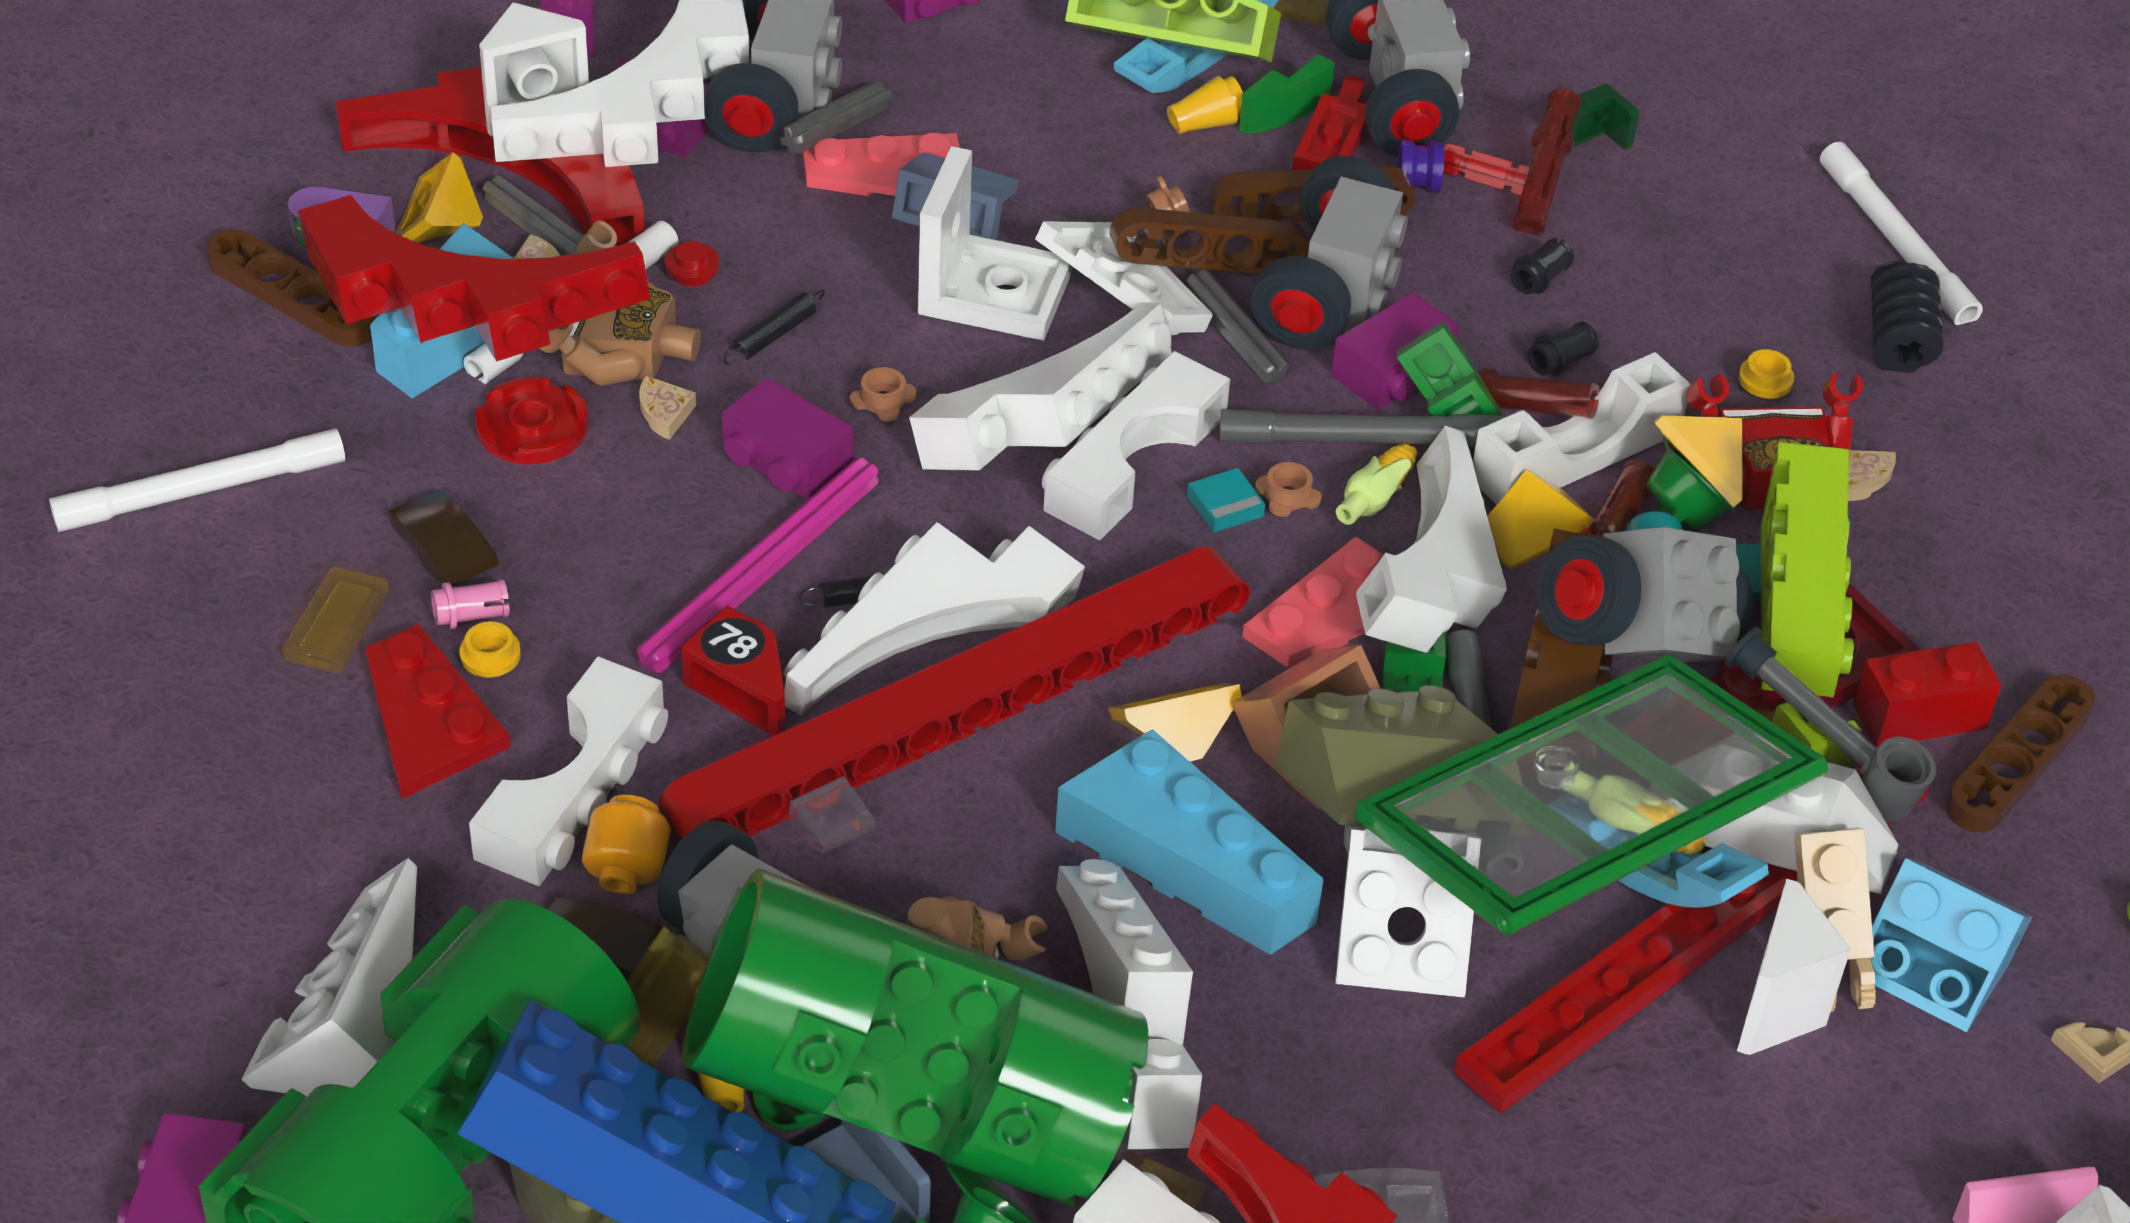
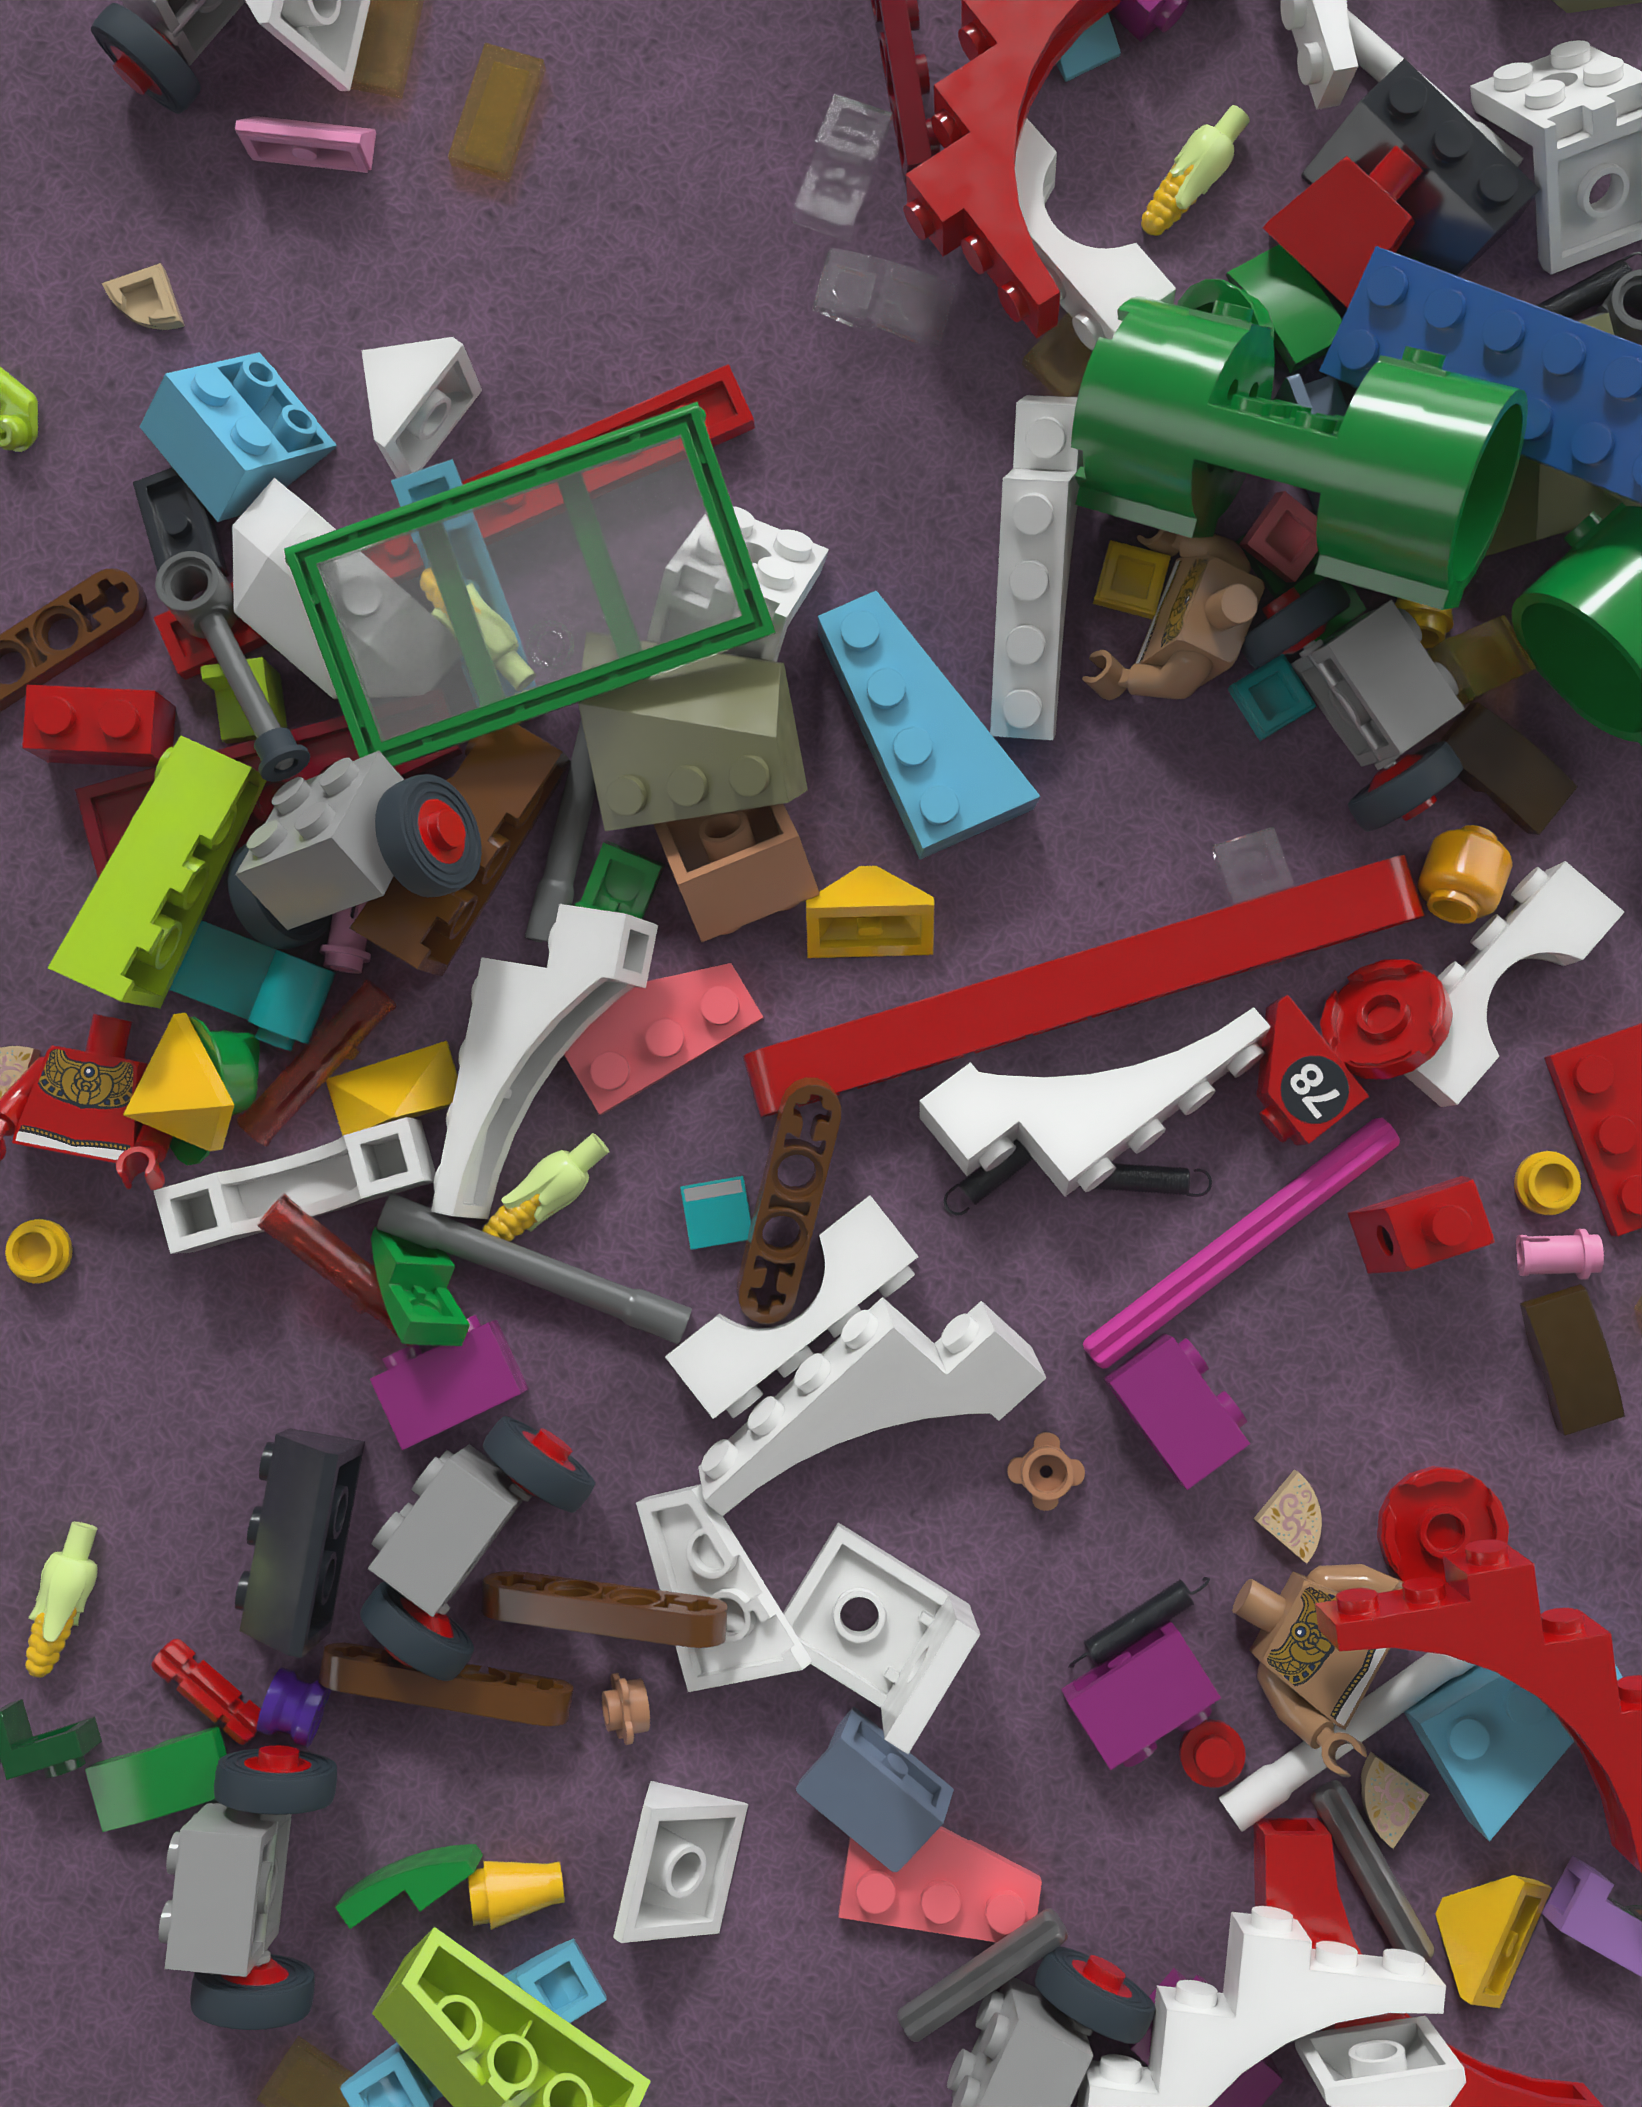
camera: 160 degrees left, 40 degrees up
(600, 580) = (1422, 1226): none -> red torso
(677, 711) = (1387, 1019): none -> red tile
(762, 275) = (1142, 1696): none -> magenta brick
(1092, 134) = (680, 1865): none -> white slope
(1170, 499) = (791, 1201): none -> reddish brown beam
(1239, 328) = (611, 1487): flat silver axle -> none
(1288, 488) = (658, 1220): nougat plate -> none
(1334, 127) = (373, 1800): red plate -> none
(1464, 241) = (299, 1539): none -> black slope
(1493, 119) = (156, 1779): none -> green slope
(1534, 271) = (231, 1487): black pin -> none
(1551, 144) = (142, 1657): clear red pin -> none
(1554, 352) = (252, 1350): black pin -> none
(1627, 198) = (61, 1598): none -> yellowish green piece
(1836, 878) = (331, 458): hinge -> none
(1940, 842) = (176, 519): none -> black plate

